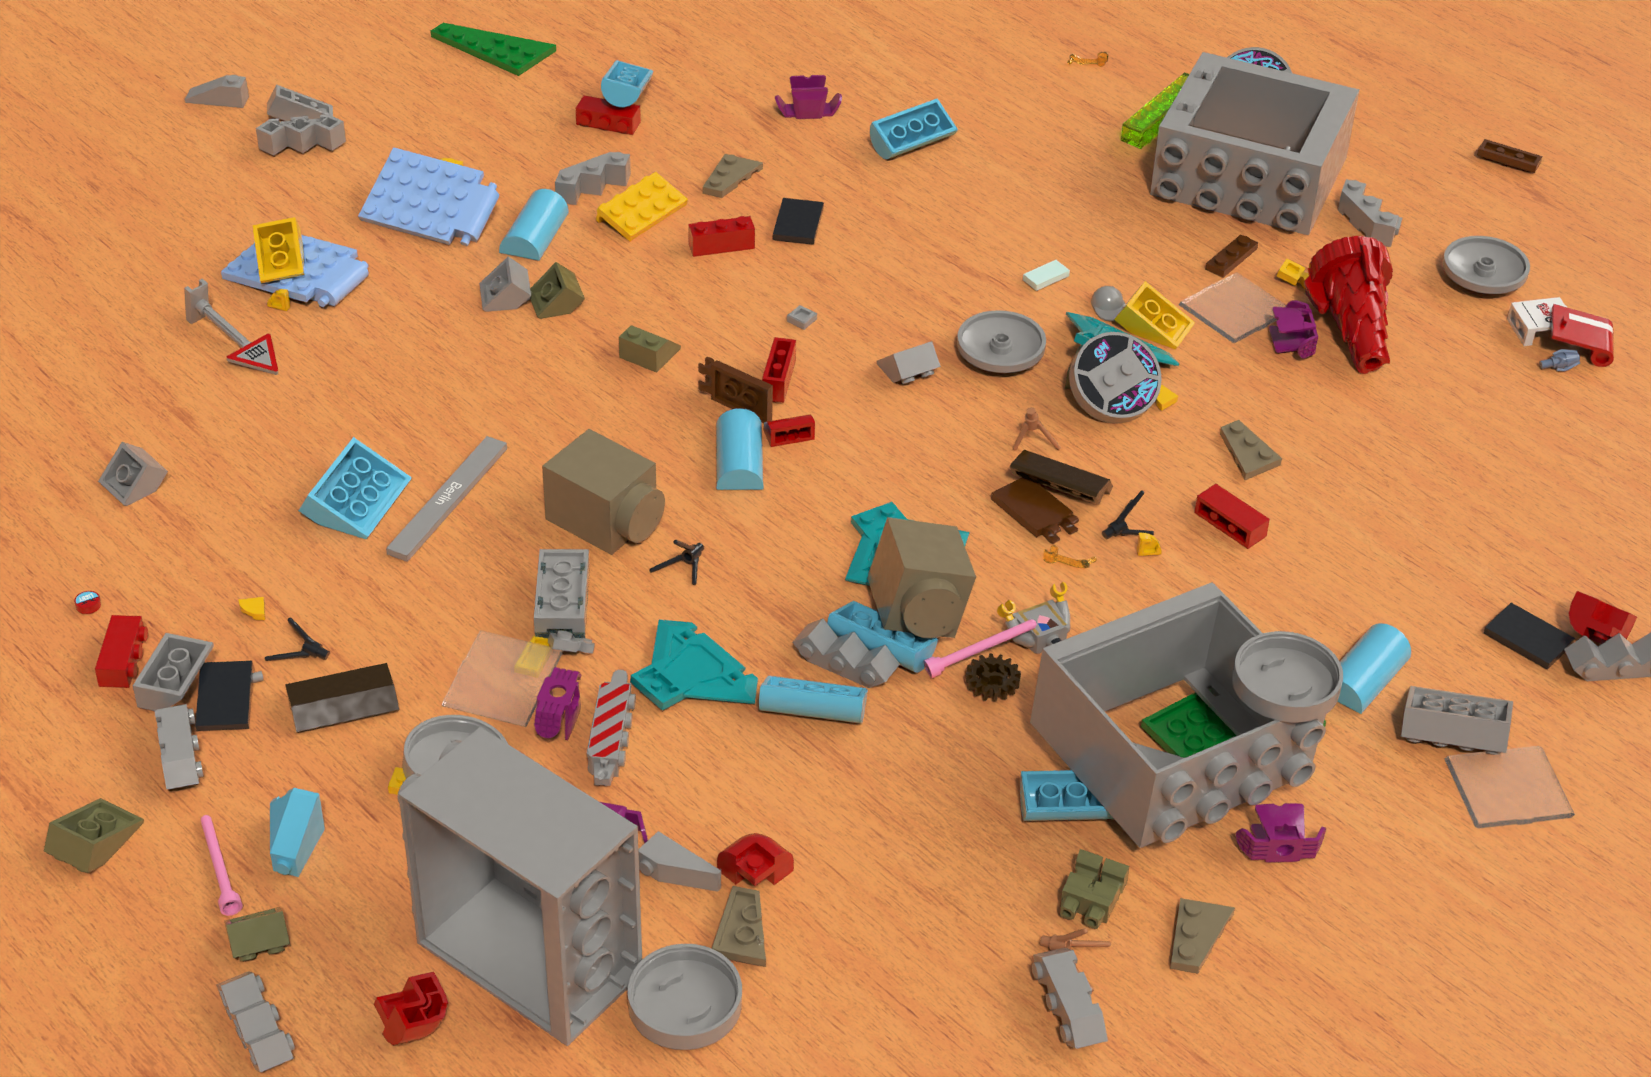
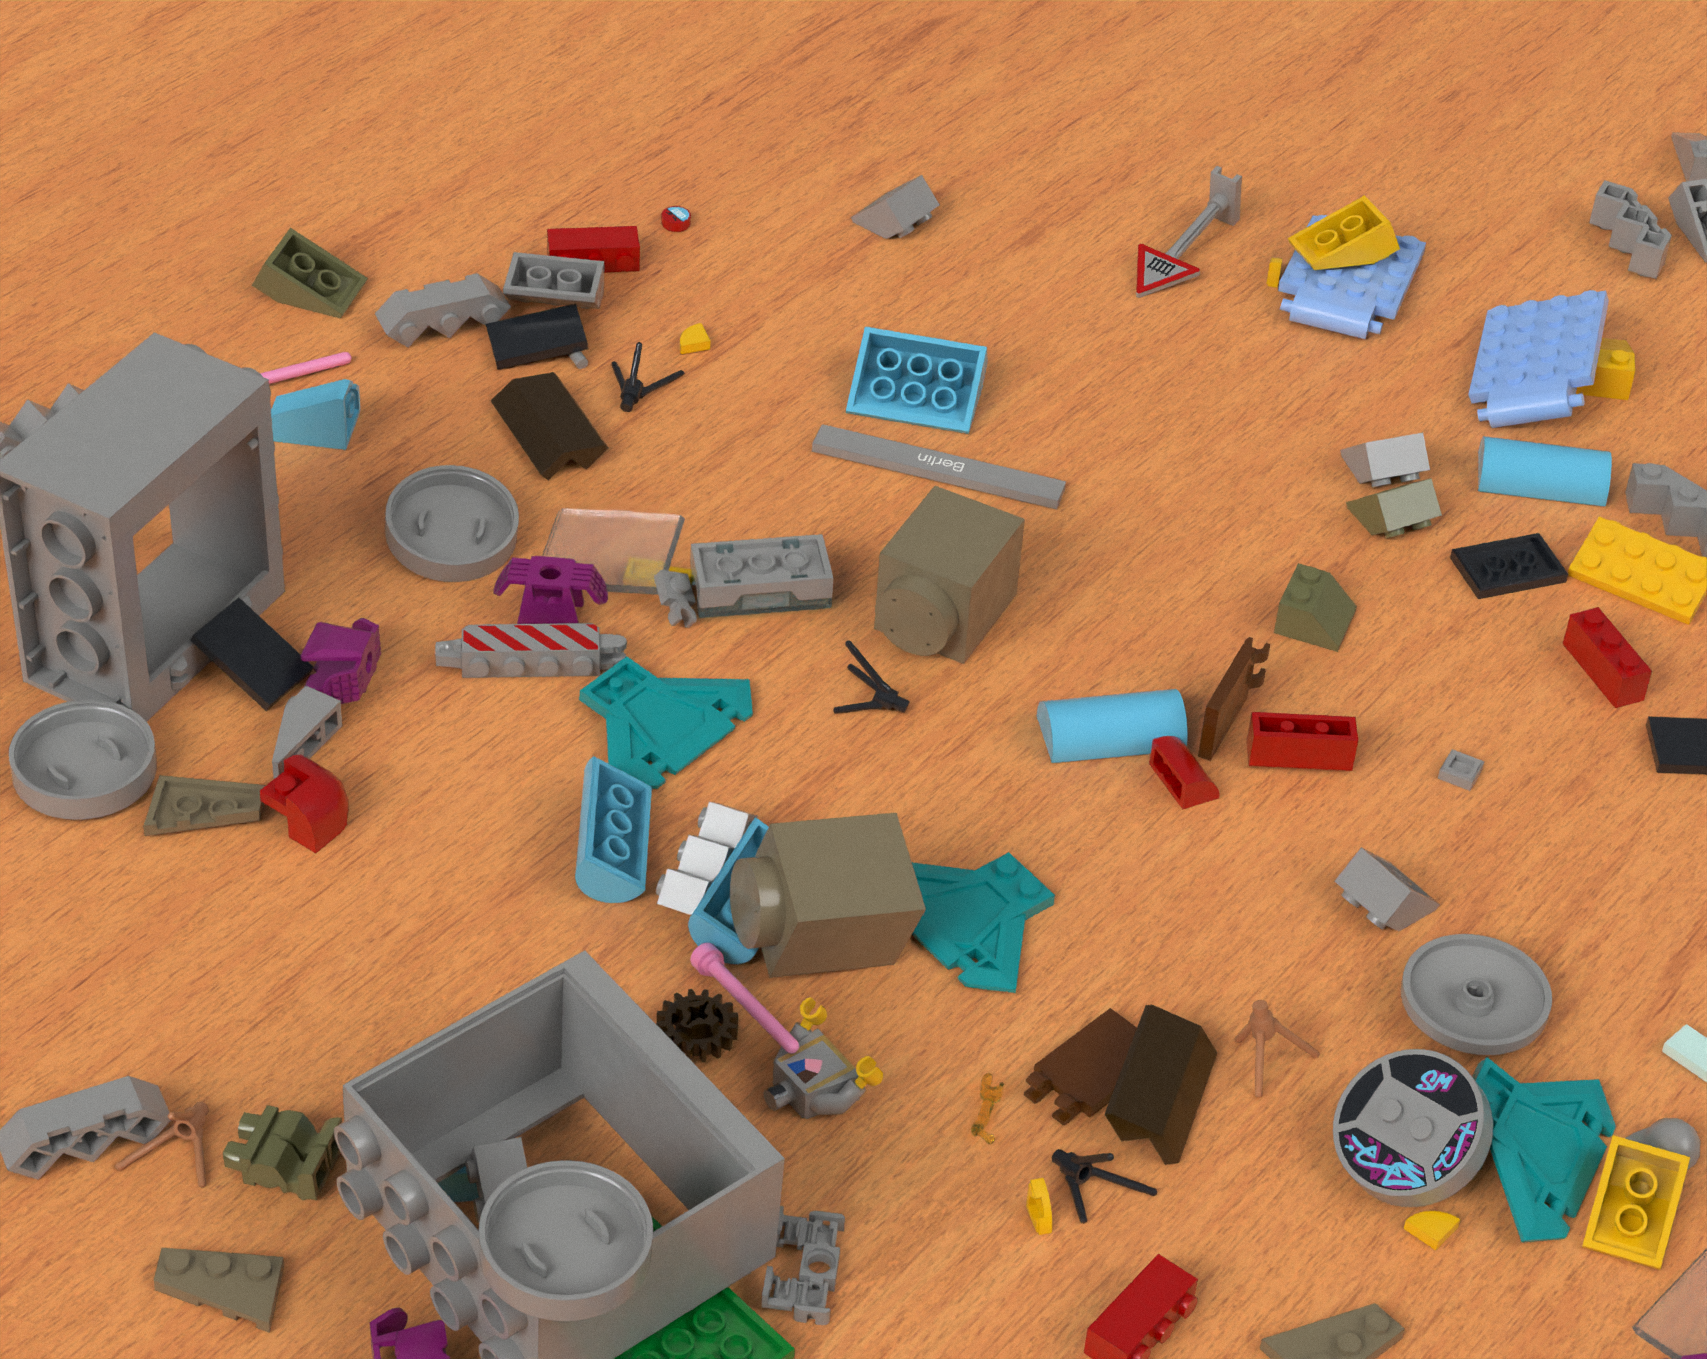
camera: 80 degrees right, 0 degrees up
(618, 261) = (1508, 566): none -> black tile

